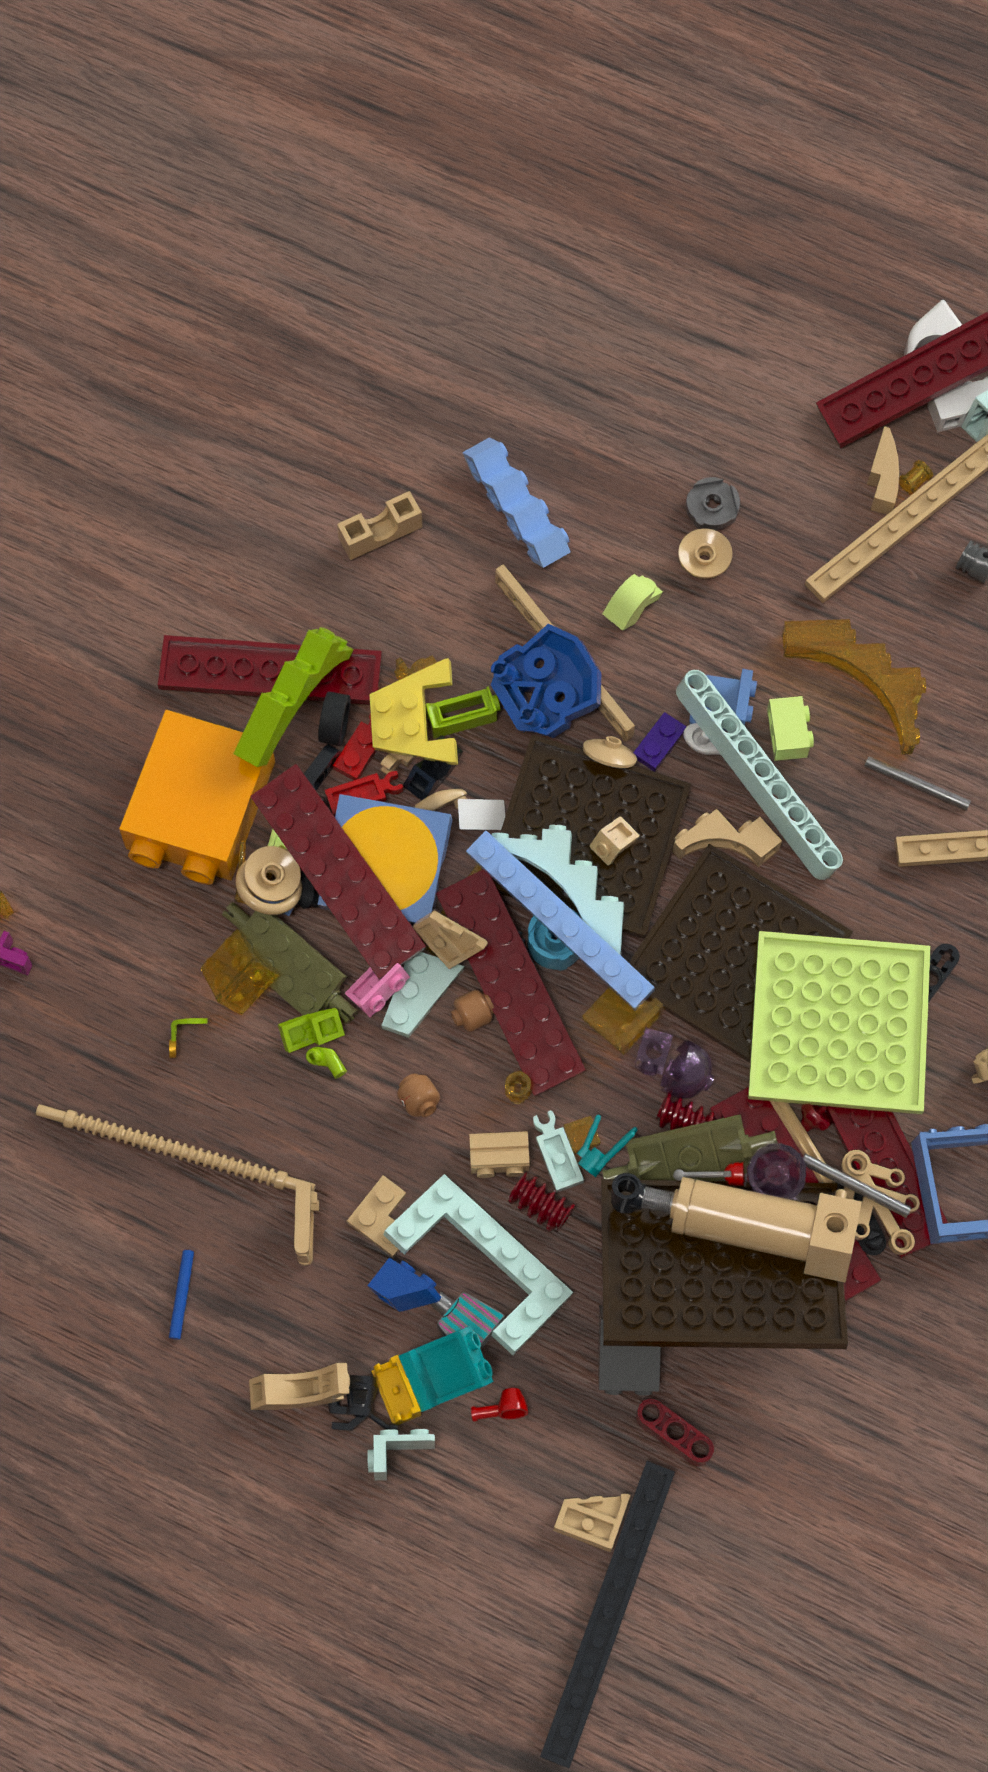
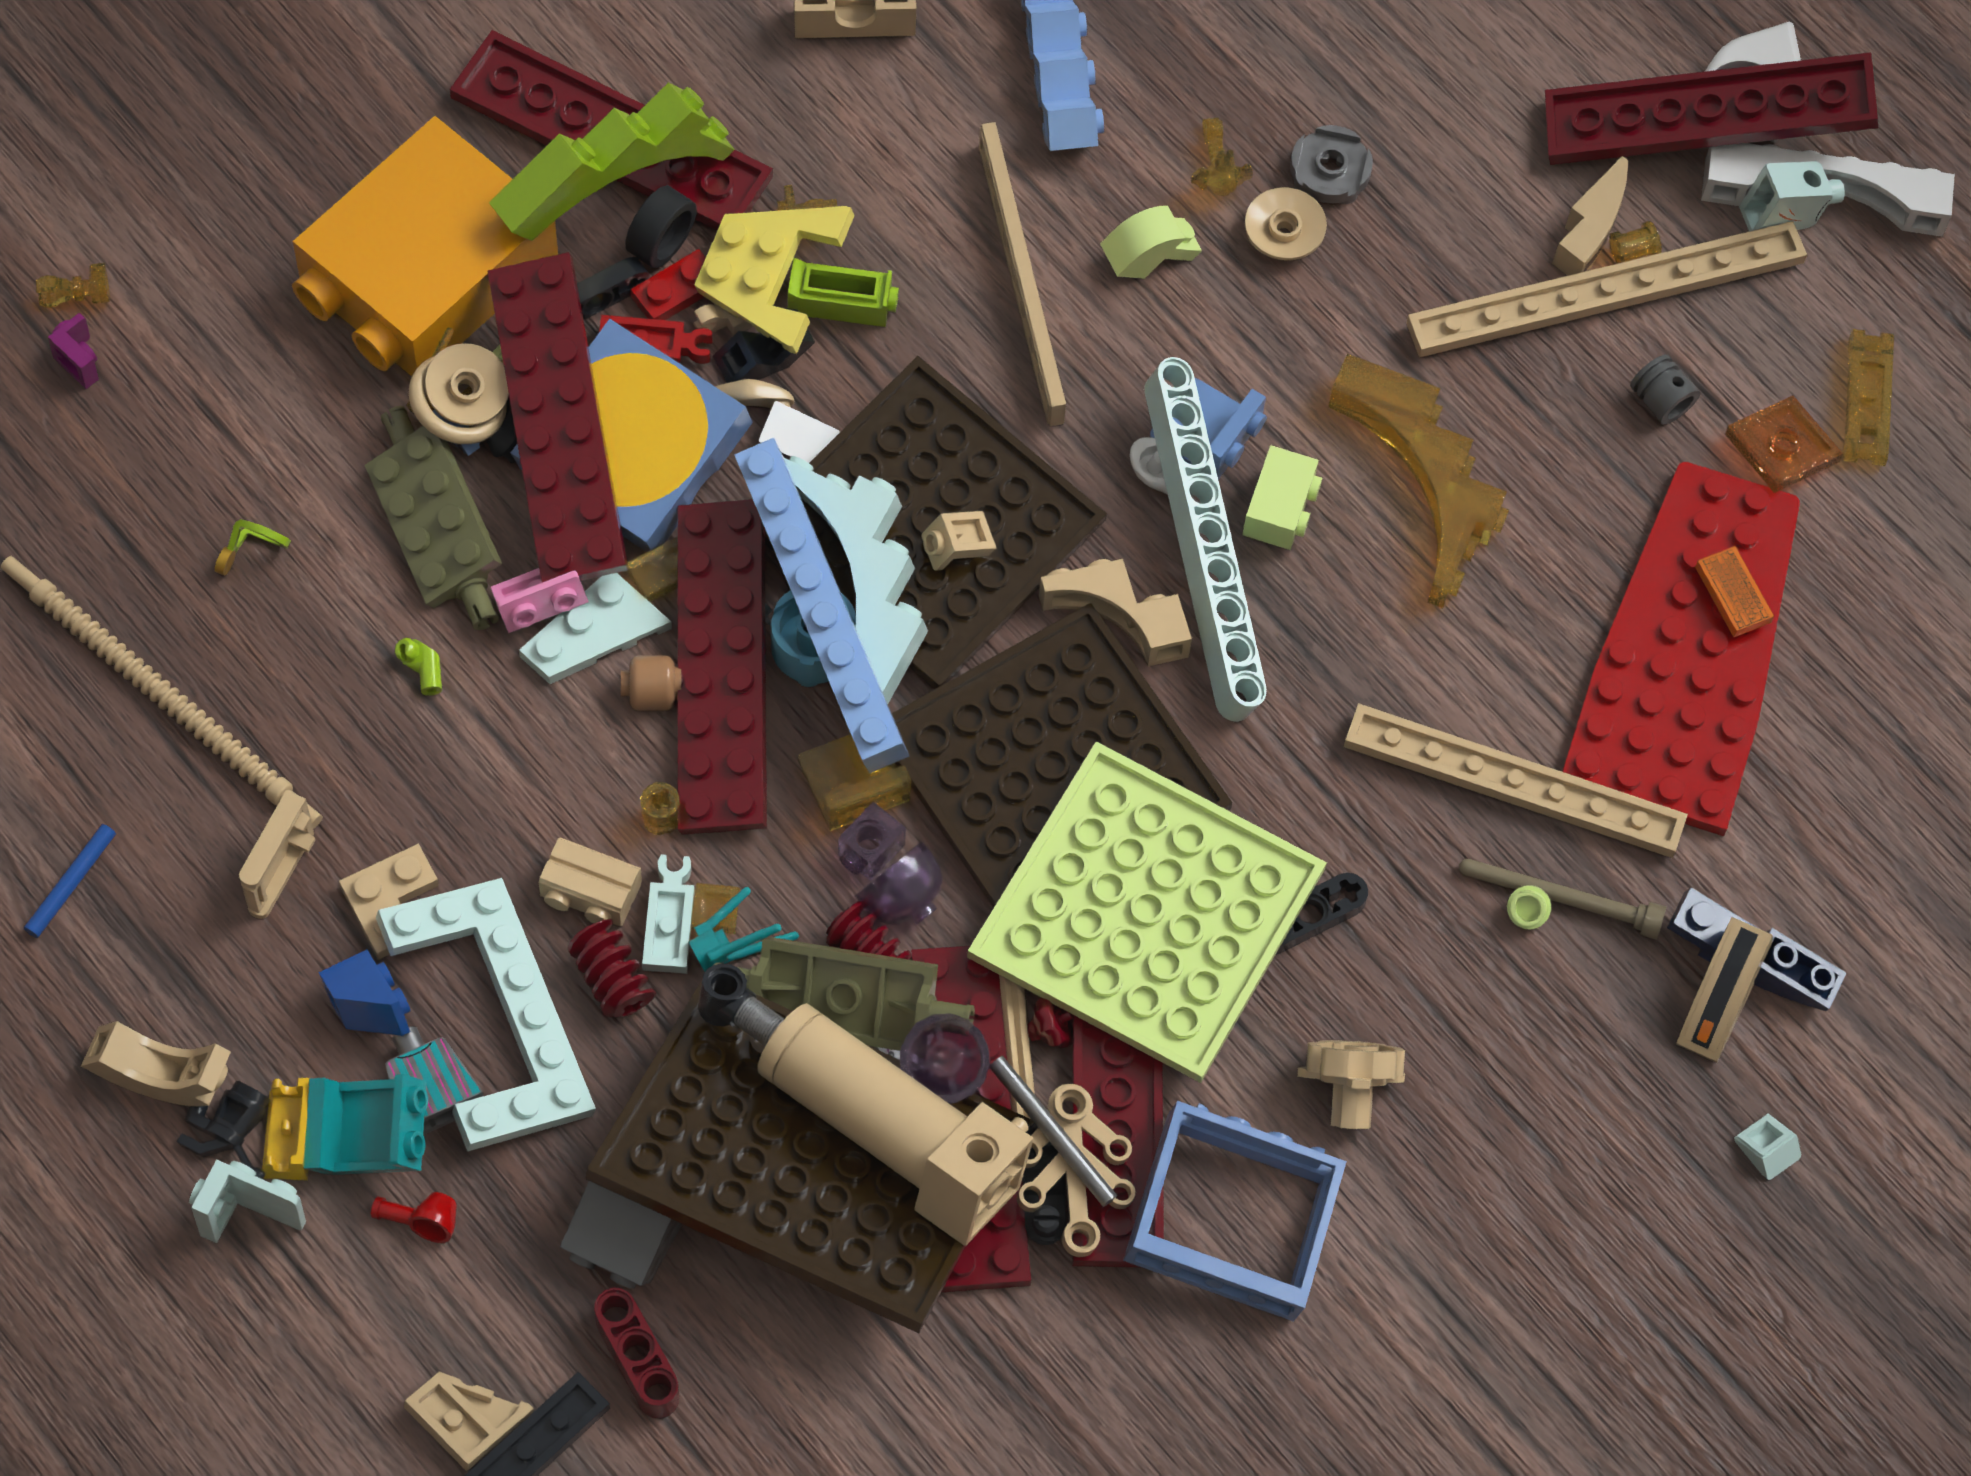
camera: 20 degrees right, 5 degrees down
(236, 974) = (357, 501): clear yellow bracket -> none
(310, 1029) = (421, 614): lime slope -> none
(418, 1095) = (519, 758): medium nougat head -> none
(448, 939) = (660, 568): tan wing -> none
(566, 671) = (1006, 292): blue brick -> none
(610, 752) = (1015, 425): tan dish -> none
(653, 537) = (1222, 174): none -> clear yellow piece
(659, 741) = (1093, 444): dark purple plate -> none
(733, 1174) = (887, 1040): hinge -> none
(917, 783) = (1429, 649): flat silver bar -> none

